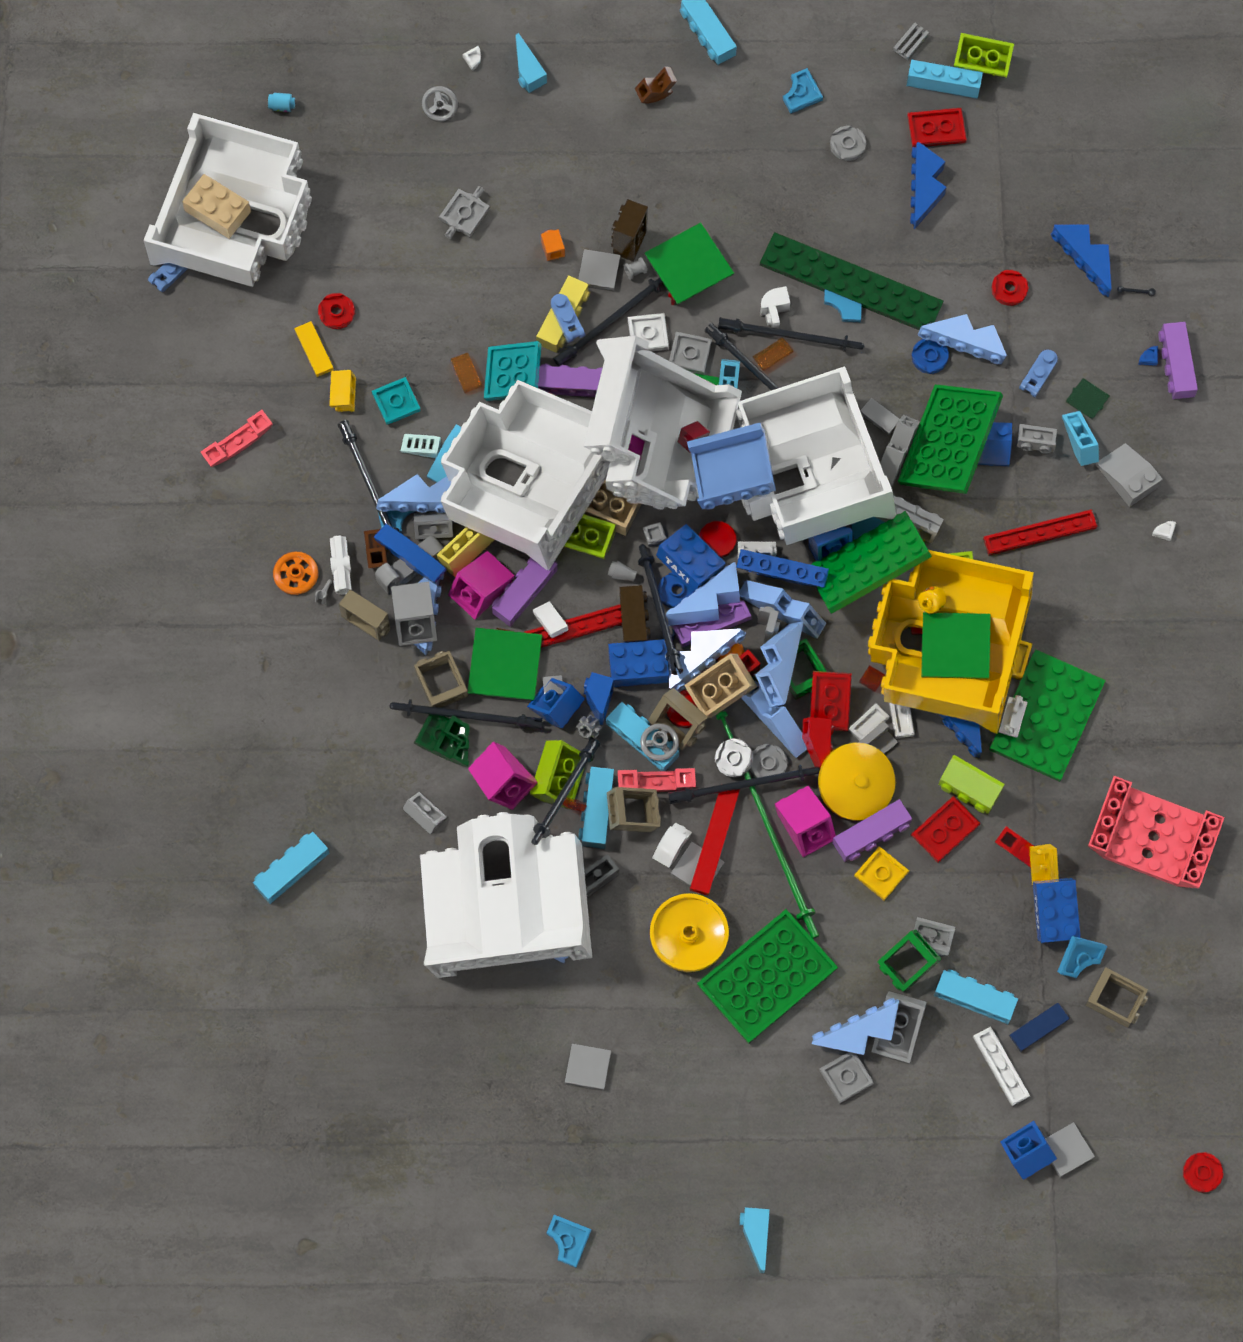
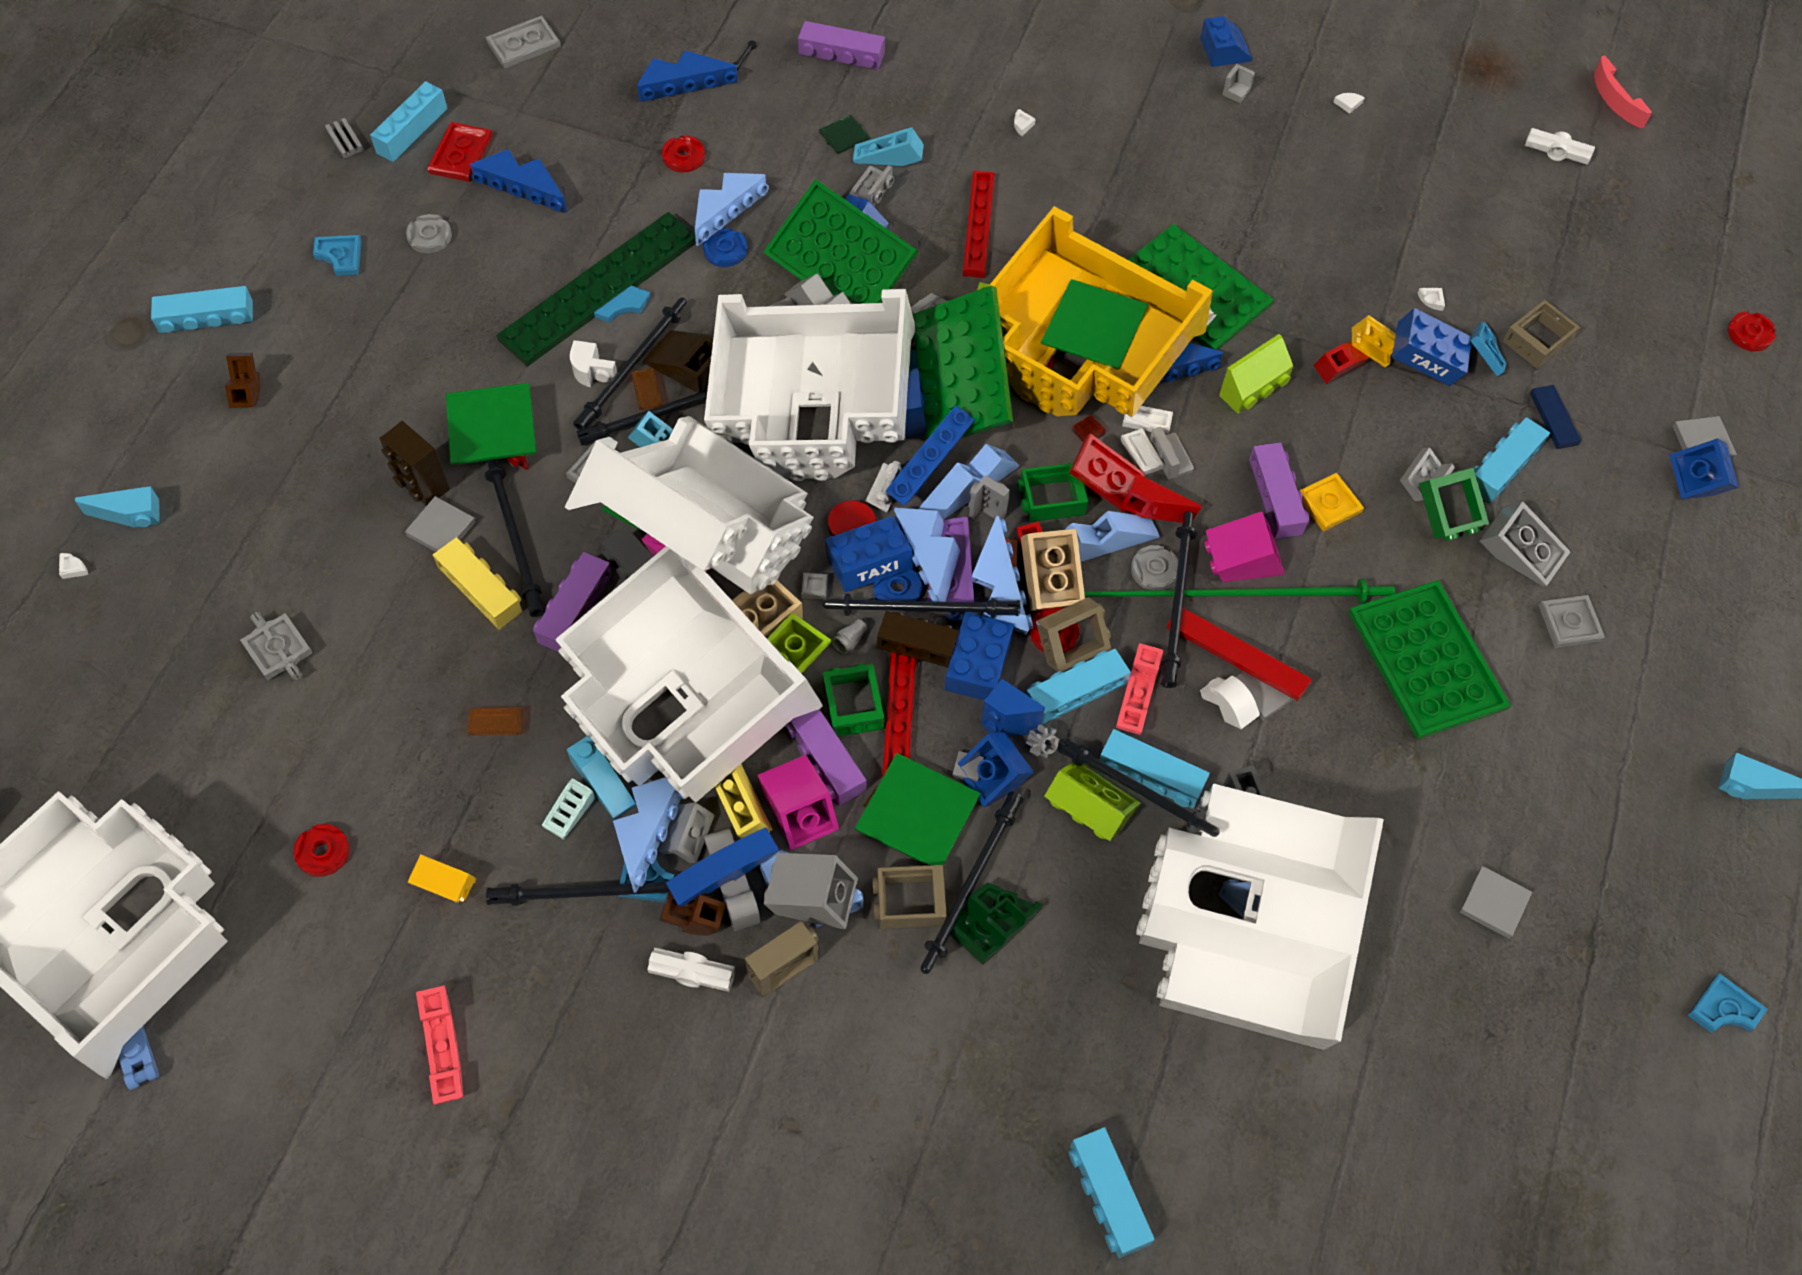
camera: 70 degrees left, 10 degrees down
(216, 206) = (80, 943): tan brick -> none
(303, 586) = (683, 1057): orange plate -> none
(314, 349) = (360, 897): yellow tile -> none
(322, 594) = (722, 1009): light grey hand -> none
(396, 401) = (491, 818): teal plate -> none
(424, 812) = (1086, 985): light grey slope -> none
(440, 97) = (100, 620): light grey piece -> none
(502, 776) = (1074, 864): dark pink slope -> none
(509, 364) = (523, 662): teal plate -> none
(549, 593) = (858, 722): none -> green window
(550, 619) = (880, 736): white tile -> none
(552, 244) = (379, 562): orange brick -> none
(566, 317) = (489, 573): medium blue plate -> none
(574, 804) = (1136, 799): clear red tile -> none
(616, 809) = (1173, 738): dark tan window -> none
(635, 268) = (461, 485): light grey bush -> none
(651, 329) = (547, 505): white tile -> none
(659, 735) = (1100, 652): light grey piece -> none
(689, 932) = (1353, 720): yellow dish -> none
(691, 432) = (723, 483): dark red brick -> none
(732, 466) = (790, 446): medium blue panel -> none
(734, 757) = (1140, 597): tile -> none
(780, 656) = (1047, 495): light blue slope -> none
(808, 362) = (683, 358): none -> dark brown slope
(854, 1034) = (1529, 585): light blue slope -> none
(856, 781) = (1215, 481): yellow dish -> none
(932, 599) = (1035, 322): yellow head -> none
(945, 829) = (1295, 423): red tile -> none
(983, 55) = (403, 75): lime slope -> none
(1001, 1066) = (1592, 467): white tile -> none
(1039, 372) = (795, 162): medium blue plate -> none
(1070, 121) = (523, 42): none -> light grey tile
(1122, 905) = (1432, 298): none -> white tile
(1129, 474) = (950, 125): light grey slope -> none
(1149, 357) = (823, 69): blue tile -> none
(1183, 841) = (1382, 220): coral slope -> none

